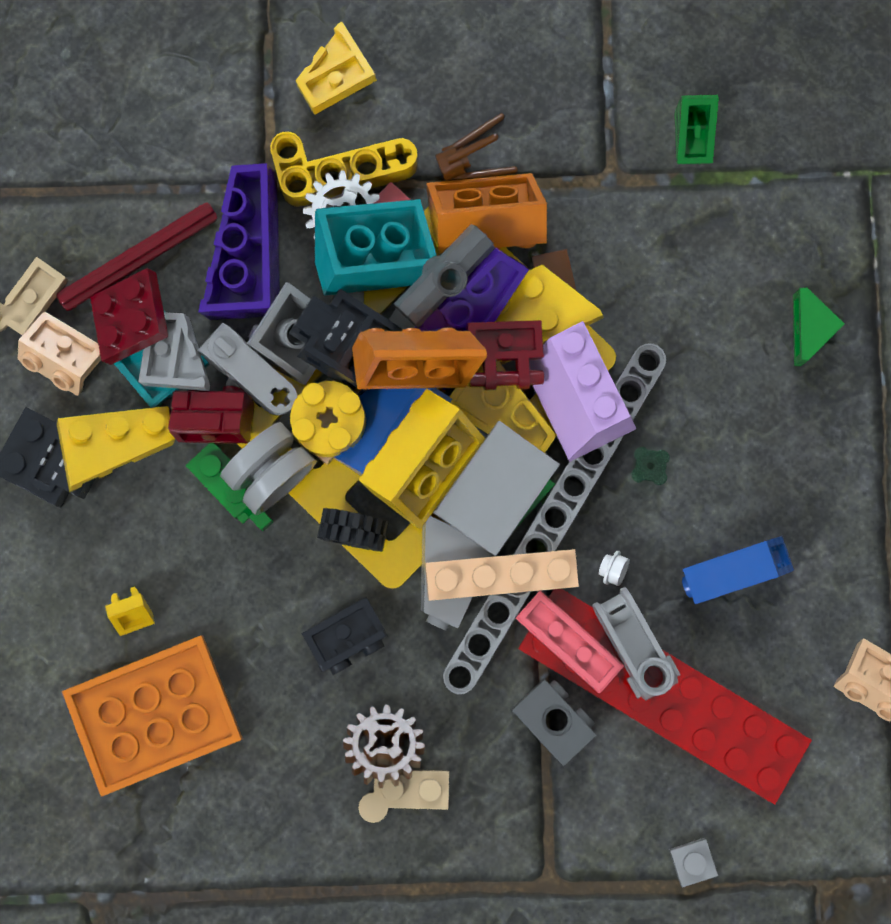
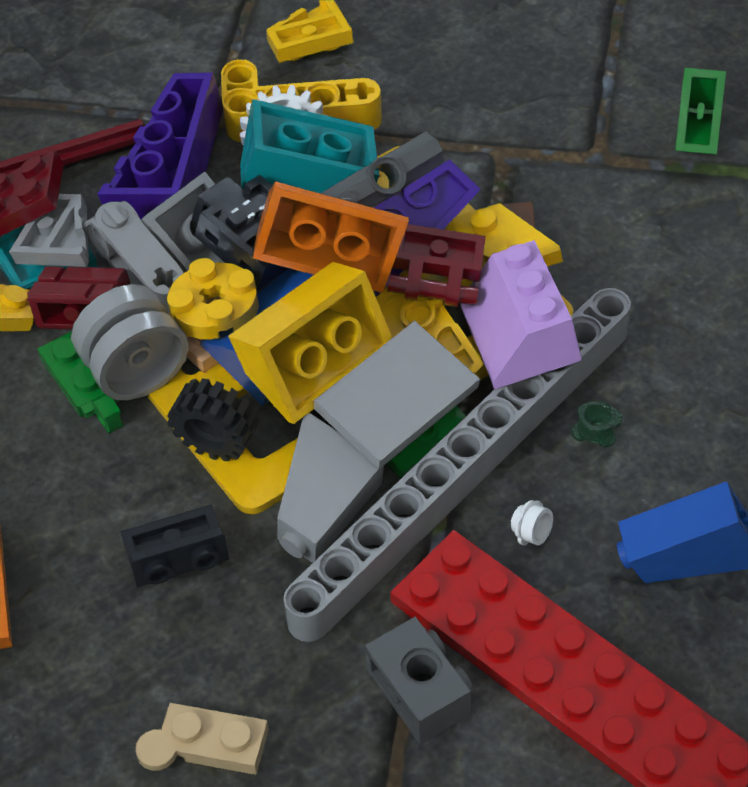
camera: 15 degrees right, 30 degrees down
(384, 762) = (188, 670): gear -> none
(454, 158) = (422, 113): reddish brown plant -> none
(501, 574) = (383, 487): light nougat plate -> none
(502, 207) = (480, 156): orange slope -> none
(569, 642) = (457, 585): coral tile -> none
(635, 644) = (543, 597): light grey piece -> none

